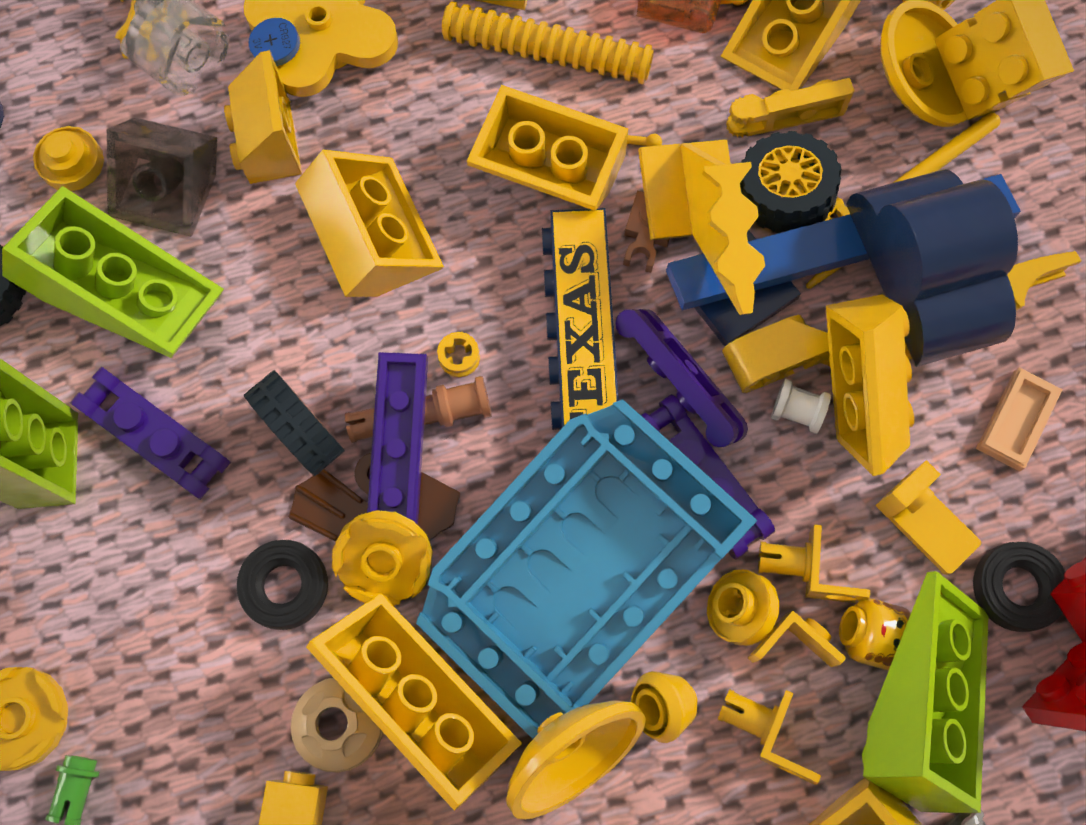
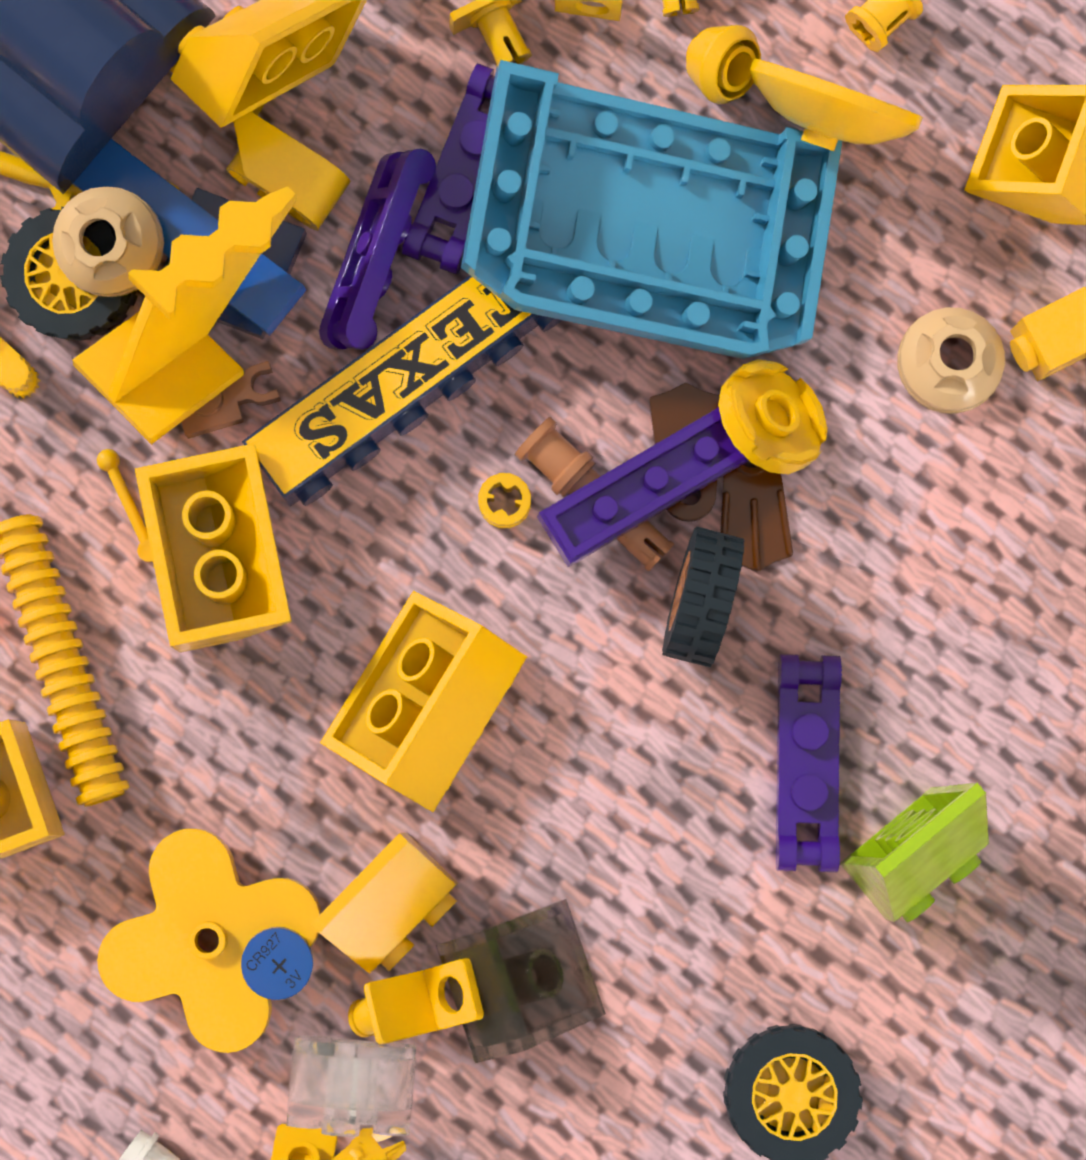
camera: 125 degrees left, 10 degrees up
(68, 158) = (572, 1108): yellow plate -> none
(107, 274) = (677, 932): lime slope -> none
(192, 100) = (415, 1003): none -> yellow bracket
(255, 571) = (888, 482): black tyre -> none
(415, 699) = (883, 282): yellow slope -> none
(742, 607) = (581, 37): yellow plate -> none
(791, 216) = (136, 247): none -> tan piece
(801, 406) = (327, 112): white bush -> none

